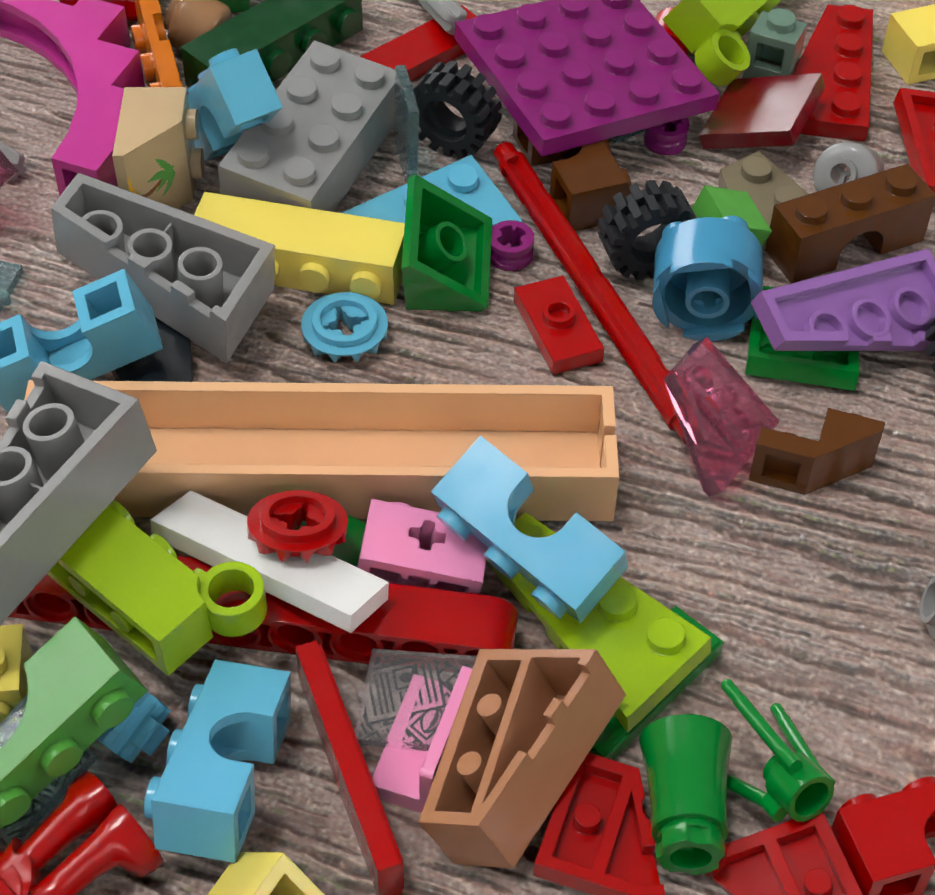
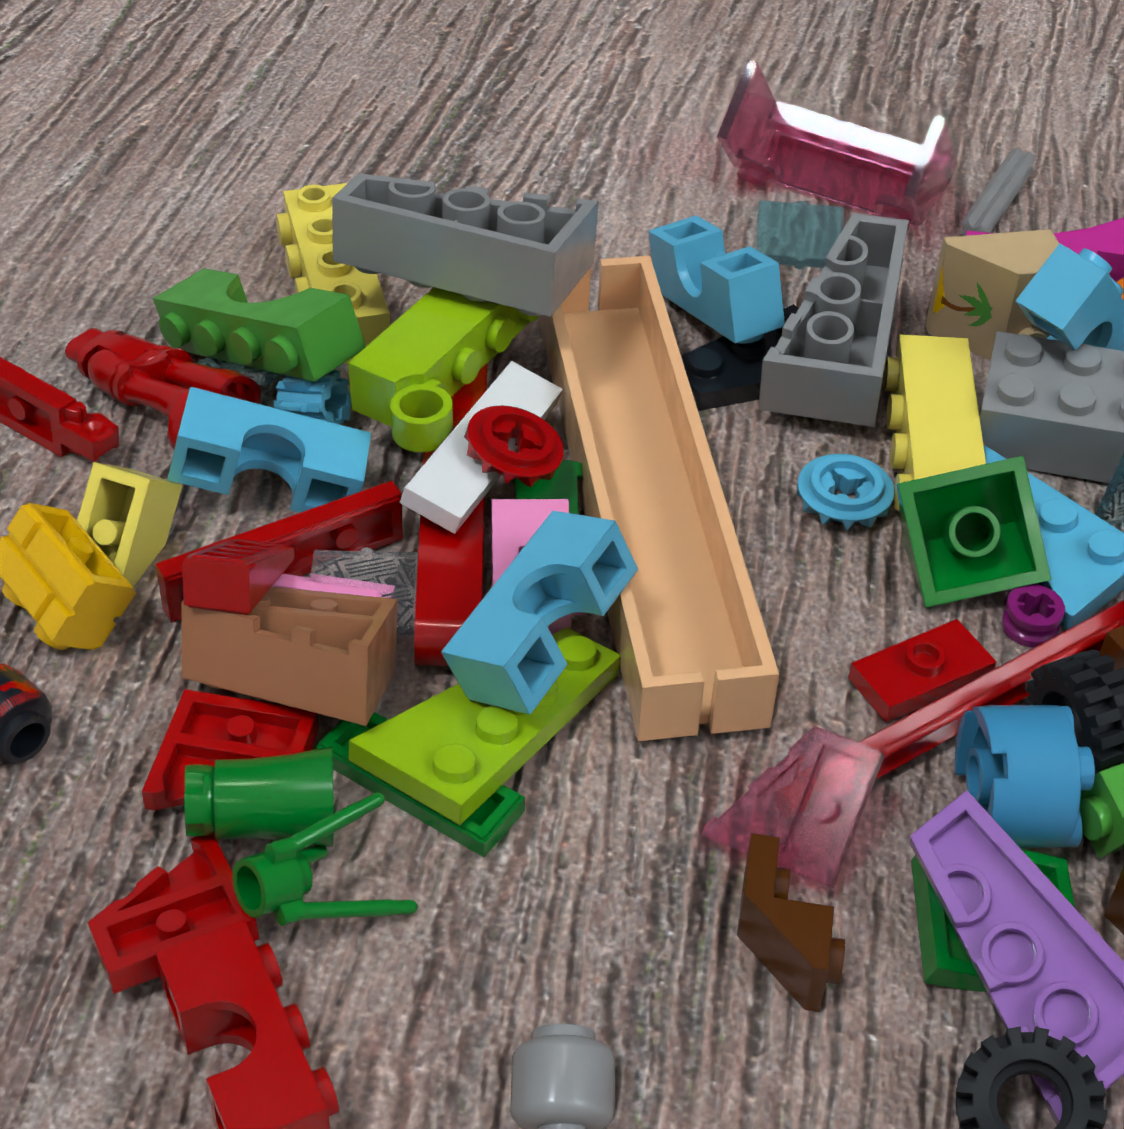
camera: 80 degrees right, 5 degrees down
(476, 794) = (233, 574): none -> red slope

